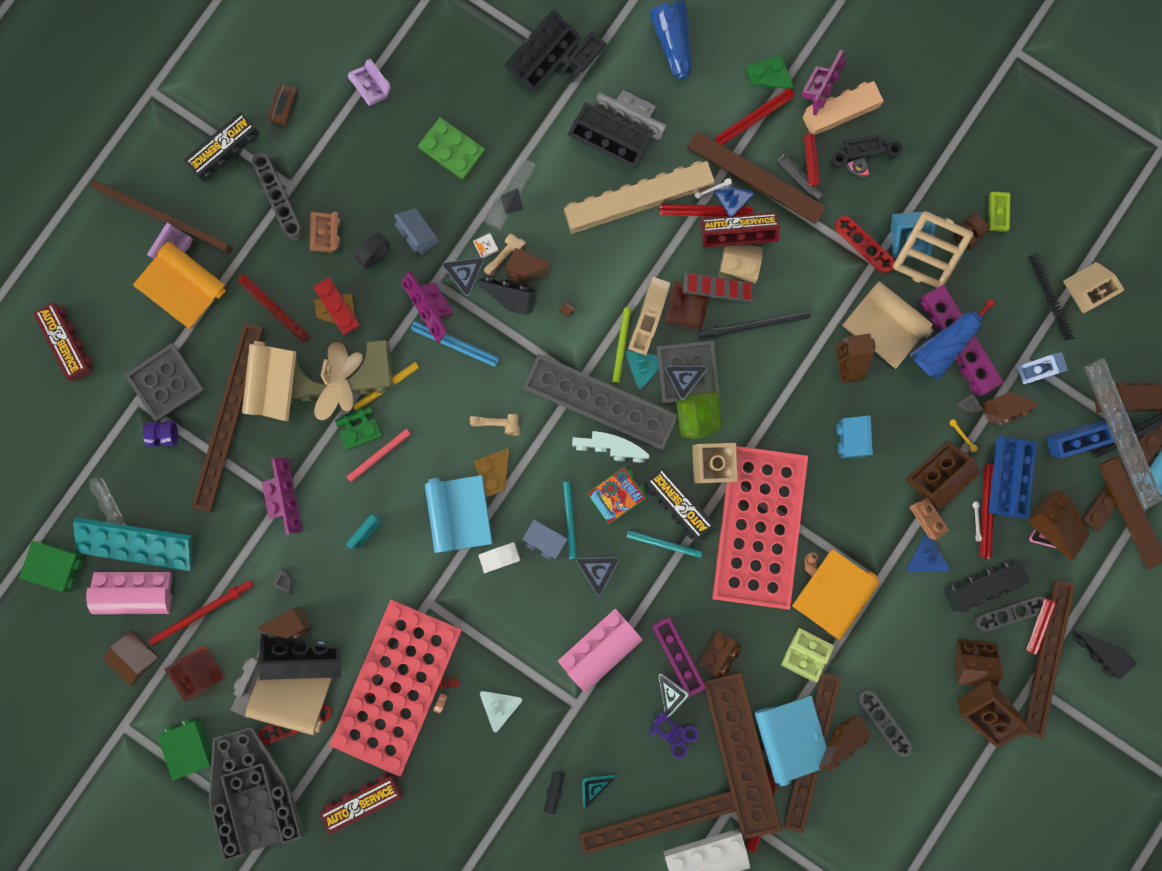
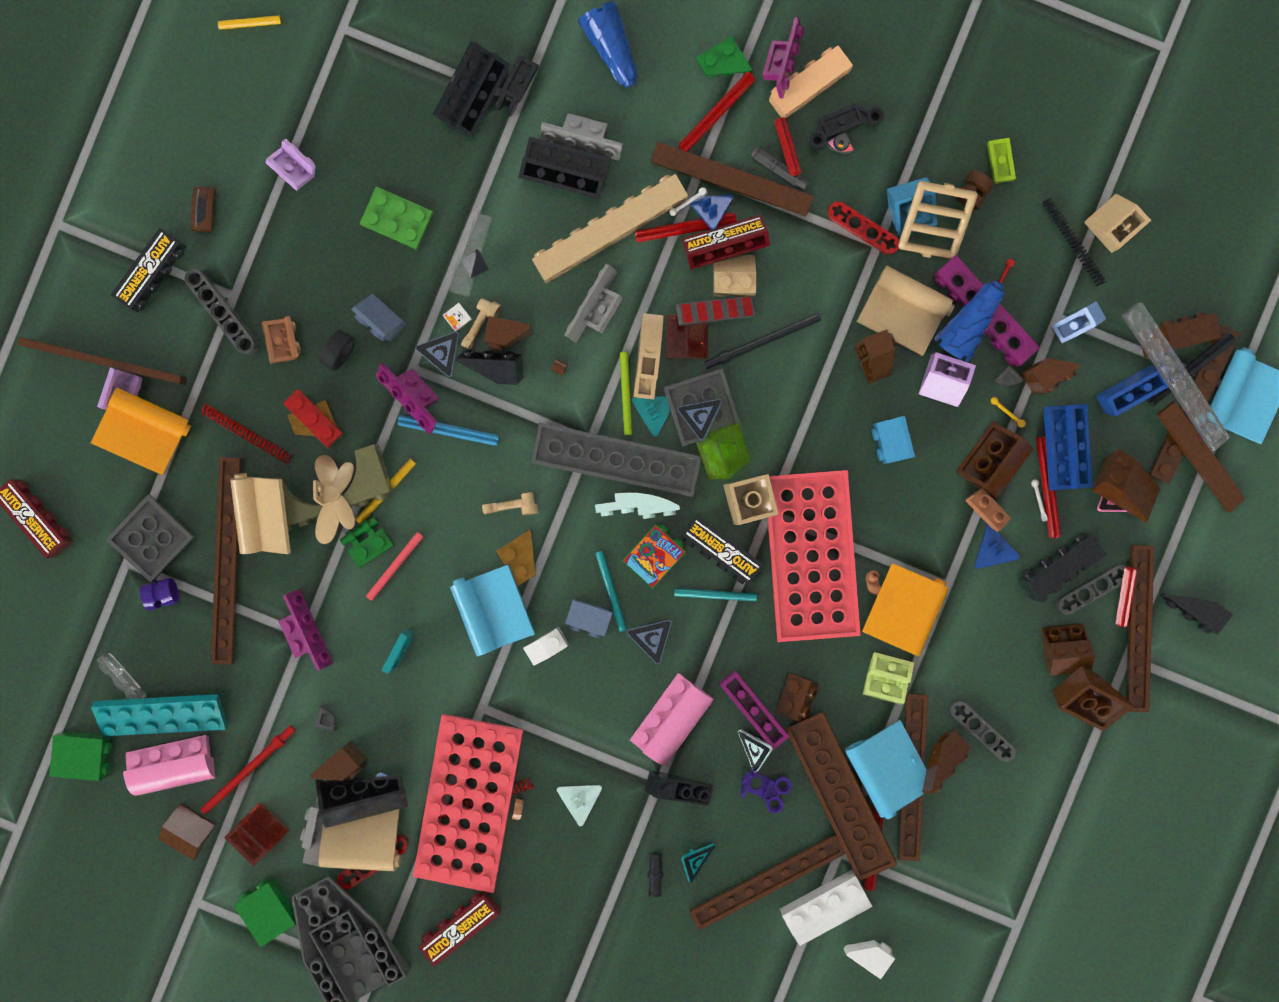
camera: 10 degrees left, 5 degrees up
(592, 716) = (678, 788): none -> black slope
(612, 262) = (597, 307): none -> light grey bracket
(913, 393) = (946, 379): none -> lavender slope

